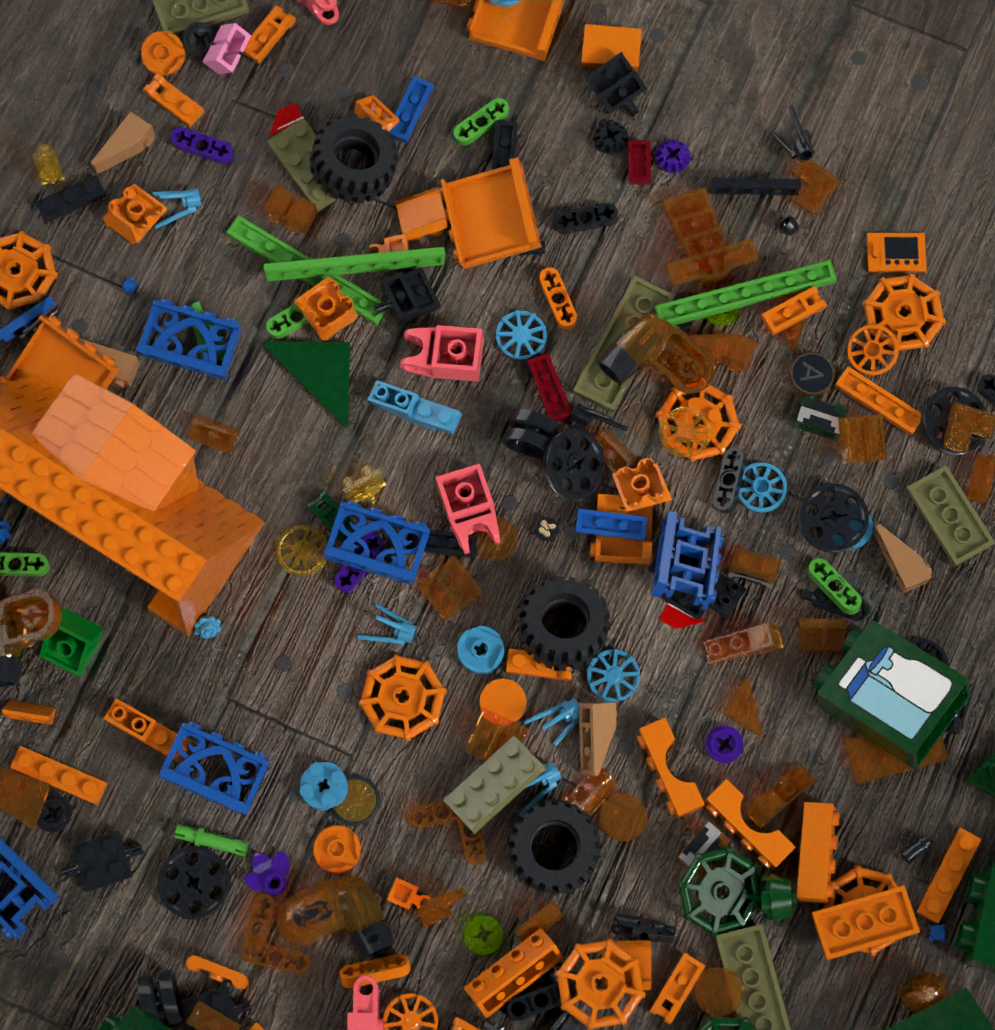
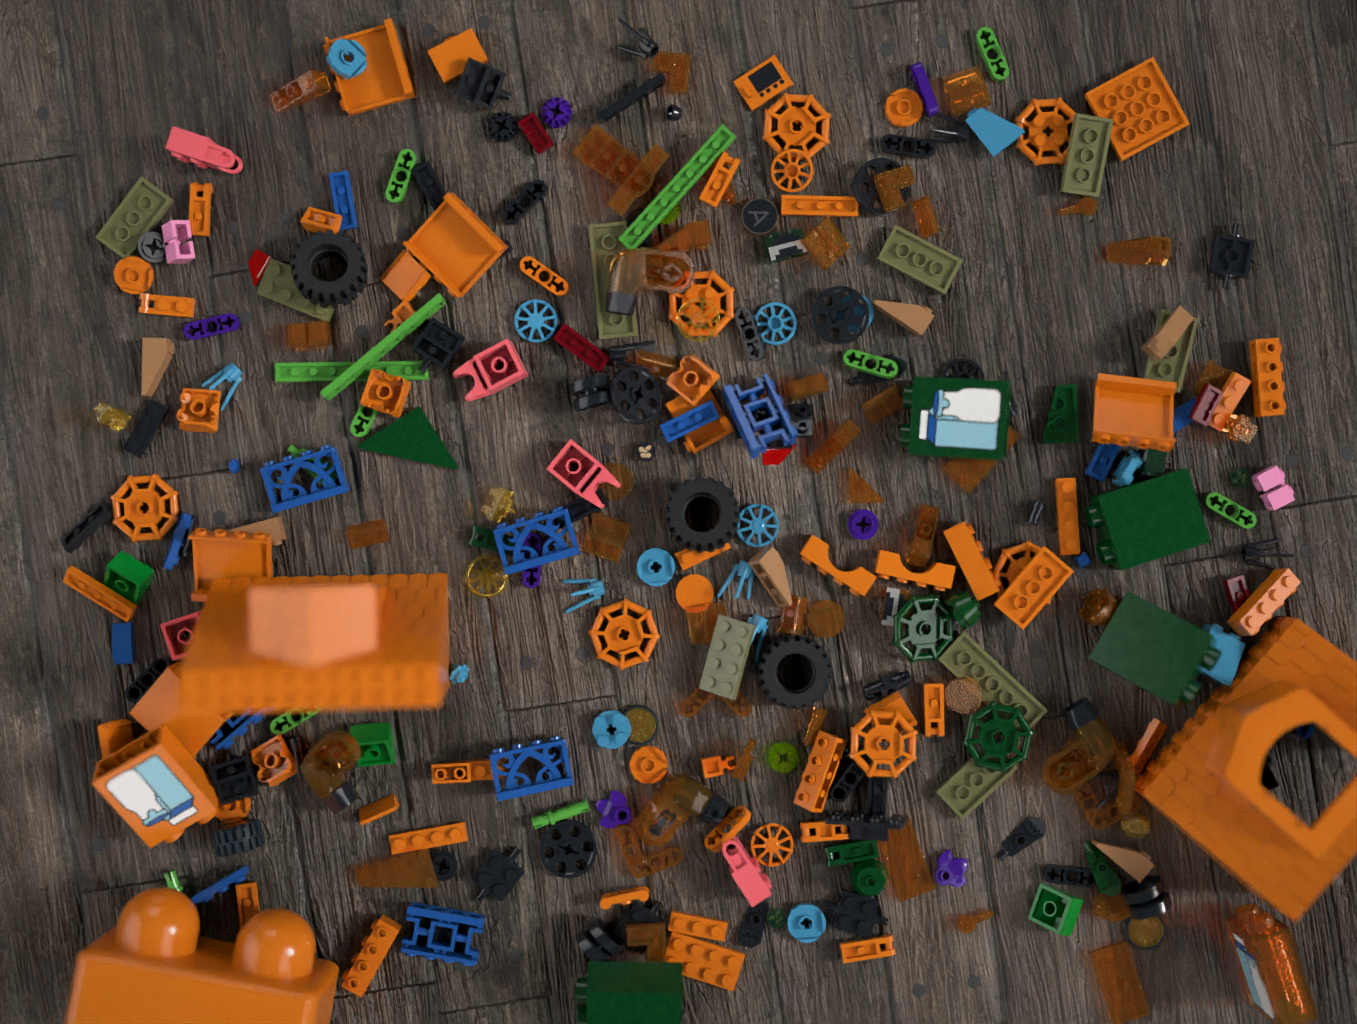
camera: 35 degrees left, 15 degrees up
(413, 408) = (496, 425): dark azure slope -> none

